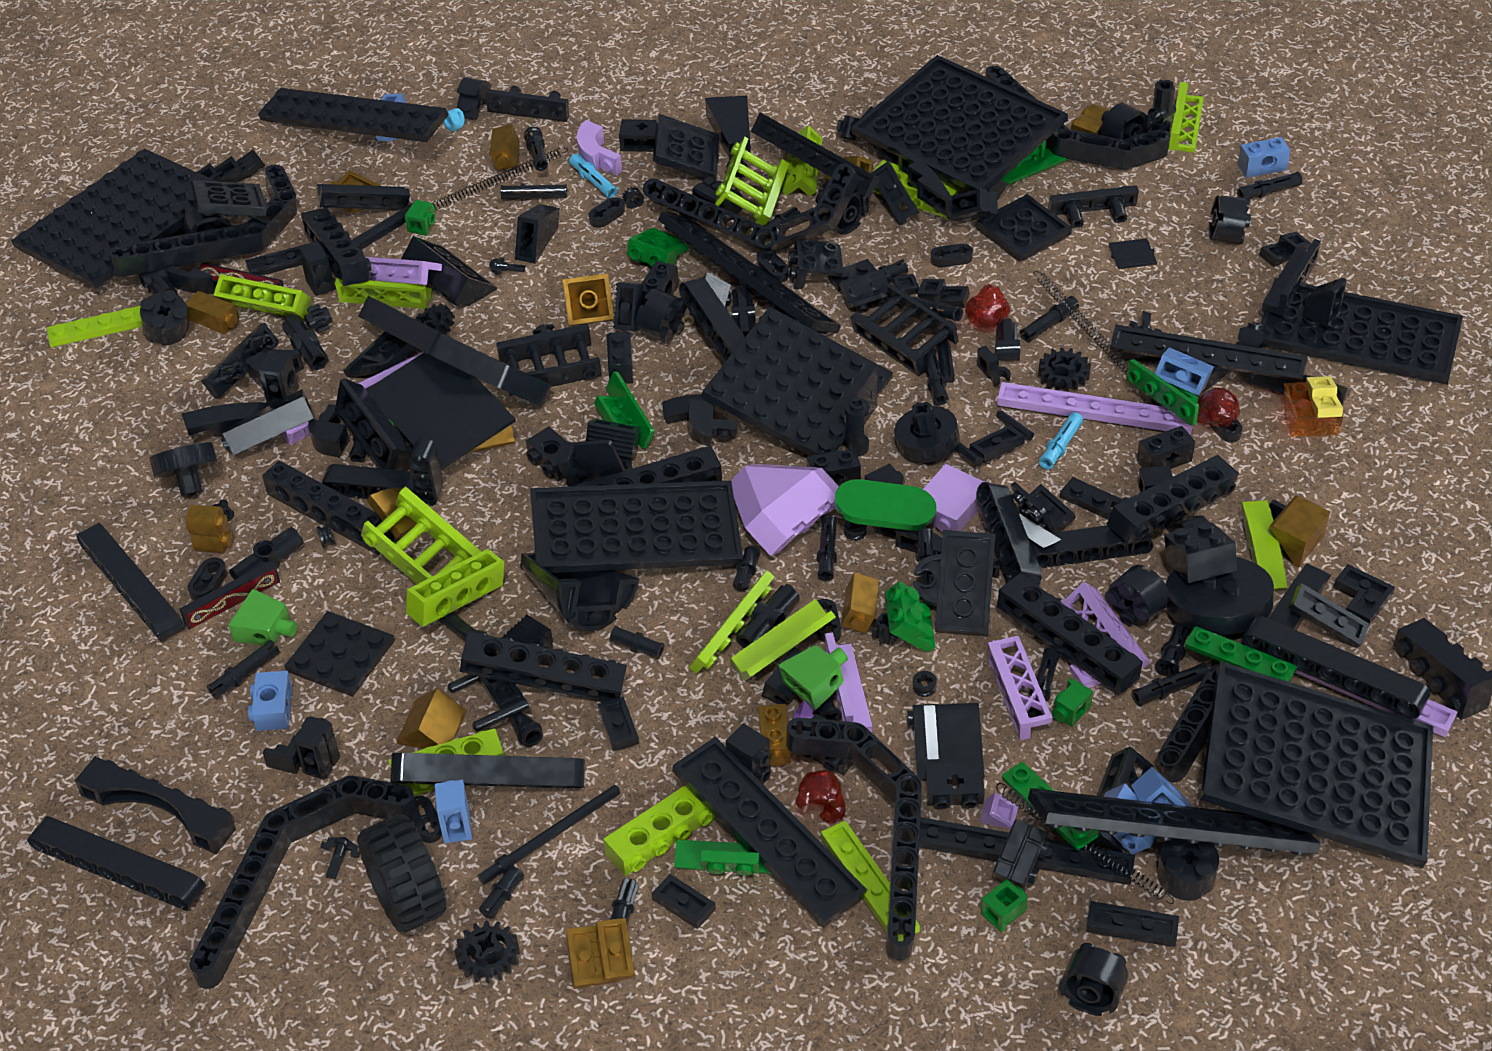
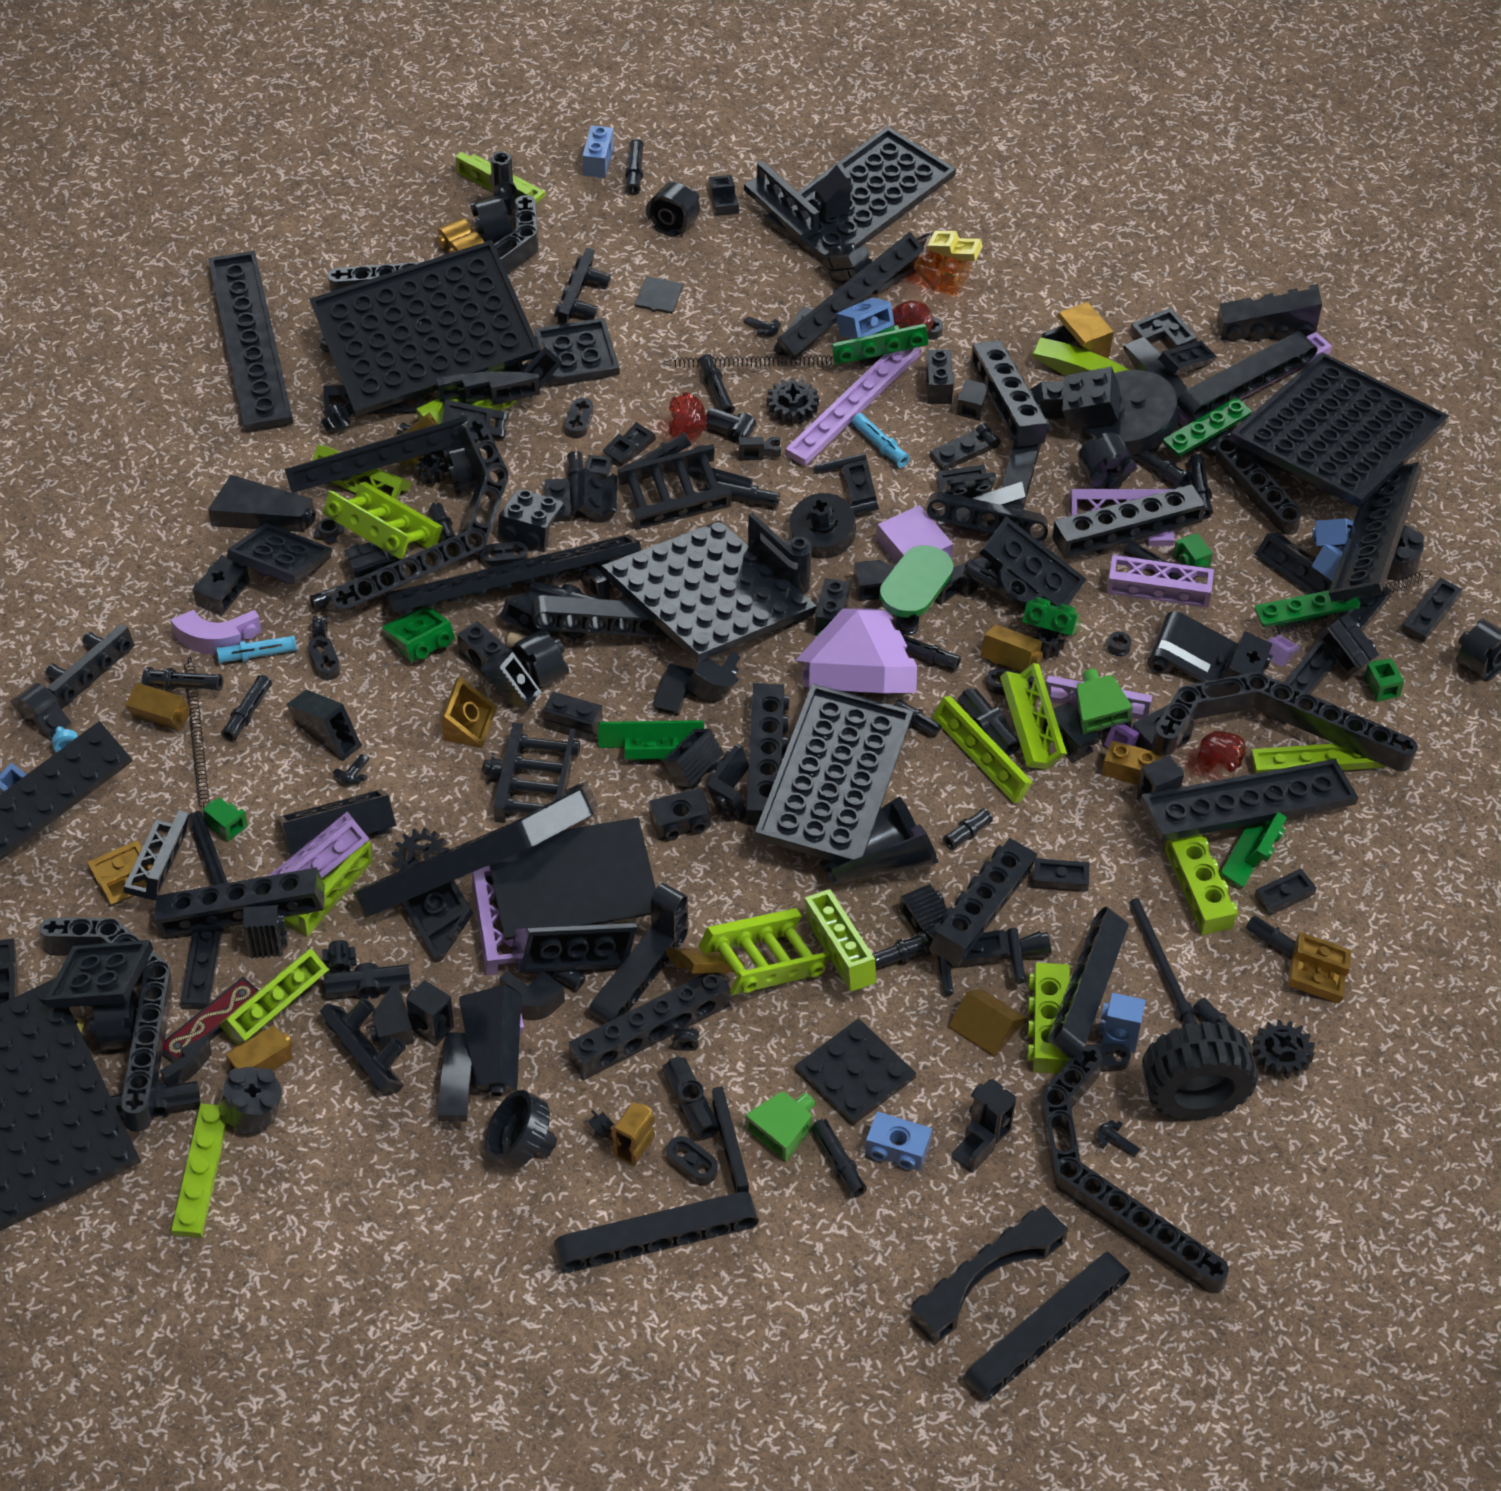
camera: 70 degrees left, 5 degrees up
(899, 61) = (250, 341): none -> black plate

